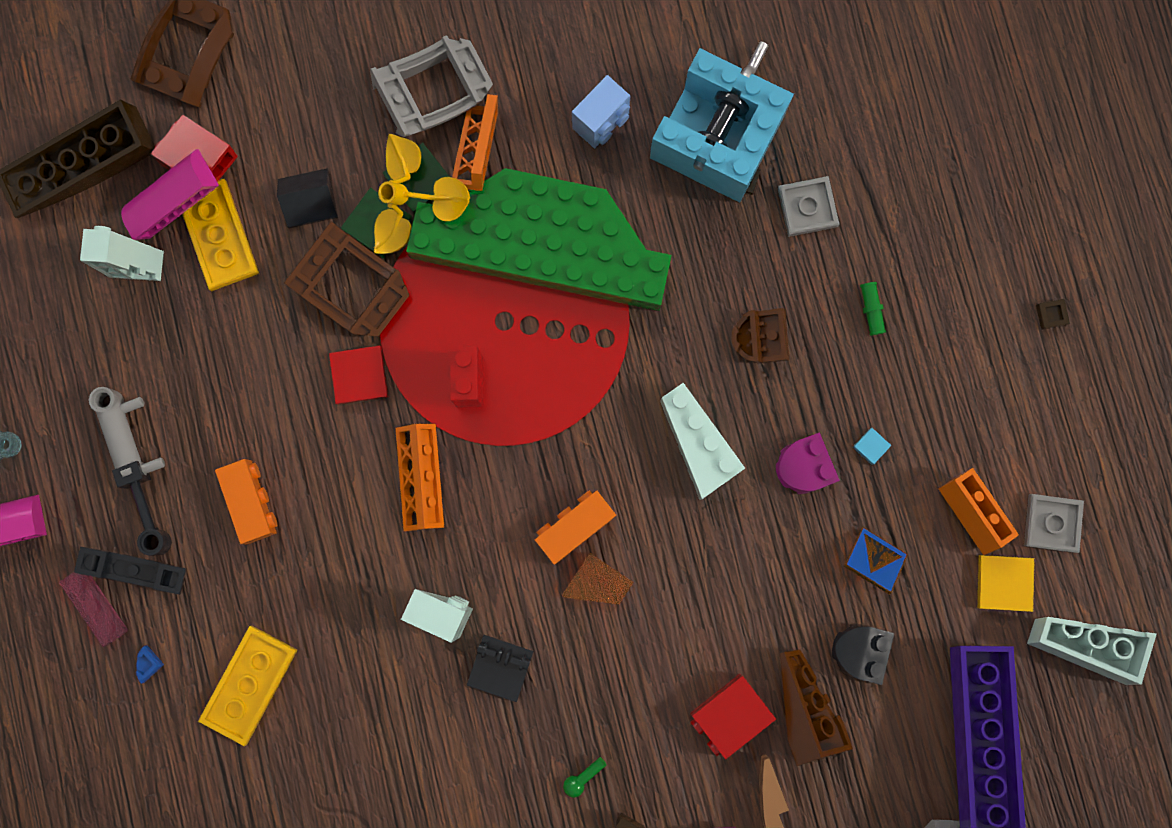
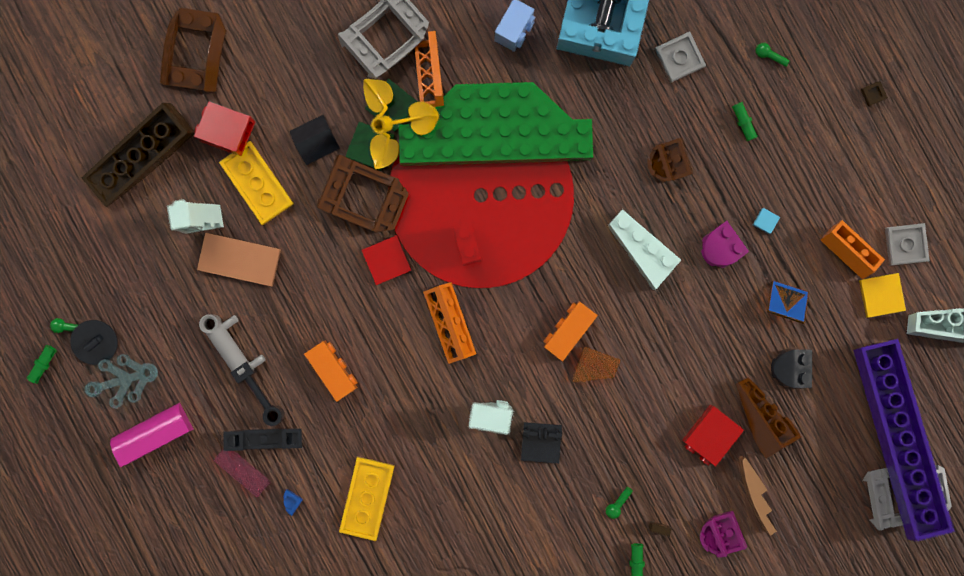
camera: 15 degrees left, 5 degrees up
(167, 327) = (239, 259): none -> nougat tile
(168, 197) = (216, 165): dark pink brick -> none
(920, 225) = (763, 50): none -> green bar

